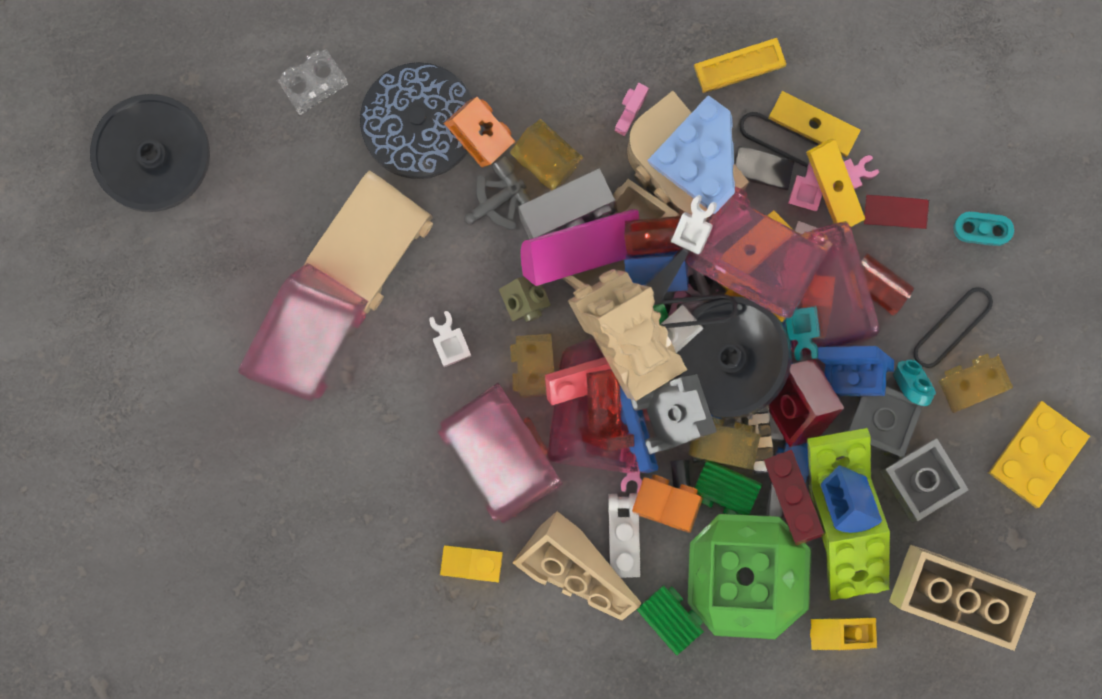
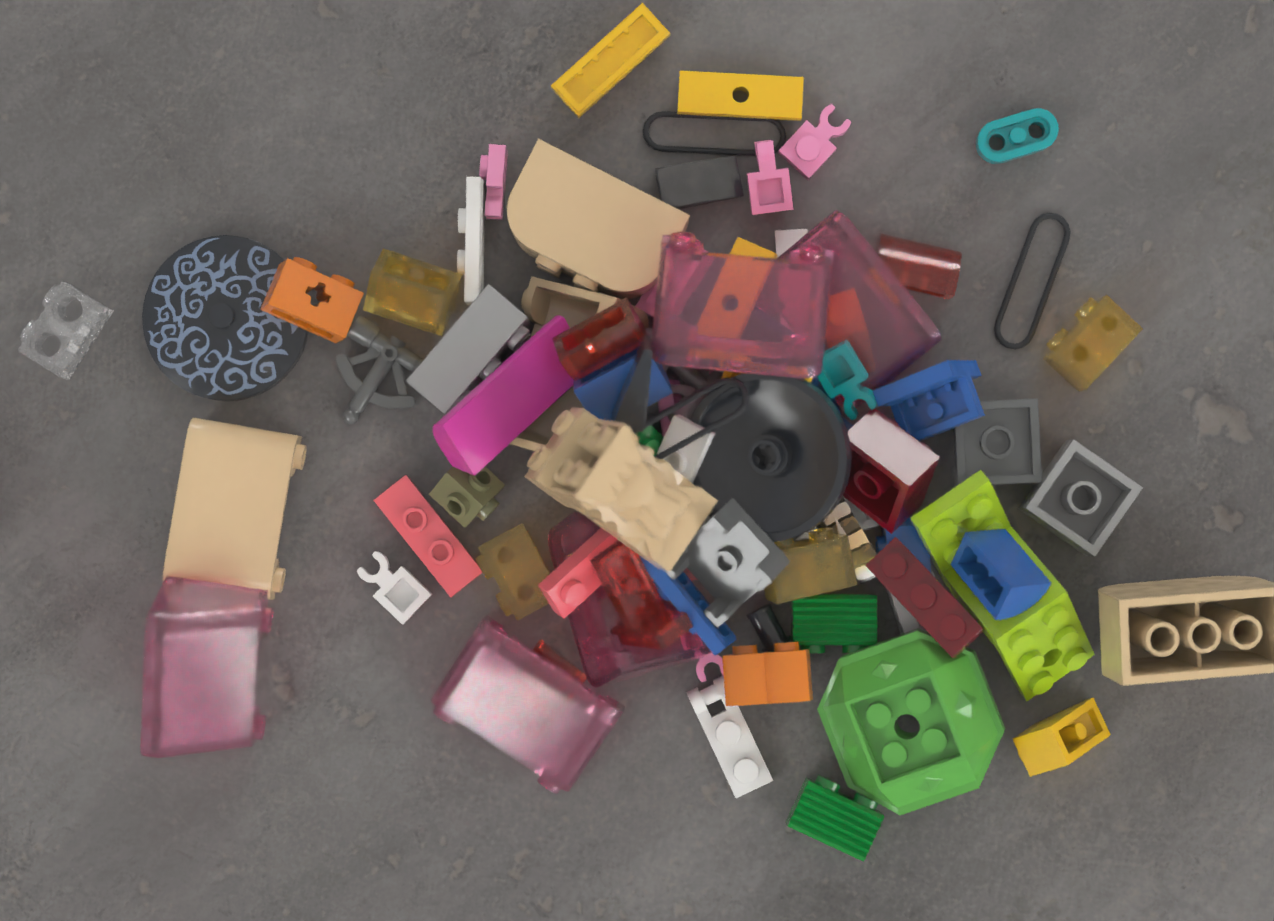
camera: 25 degrees left, 5 degrees up
(471, 563) = (553, 860): yellow slope -> none
(485, 317) = (428, 535): none -> coral plate
(569, 560) = (670, 798): tan wedge -> none
(604, 128) = (472, 223): none -> white plate
(693, 229) = (645, 316): white plate -> none
(700, 154) = (613, 211): light blue plate -> none
(830, 169) = (786, 148): yellow tile -> none
(896, 211) = (895, 164): dark red slope -> none
(914, 382) = (1014, 378): teal plate -> none
(1039, 454) = (1210, 396): yellow plate -> none

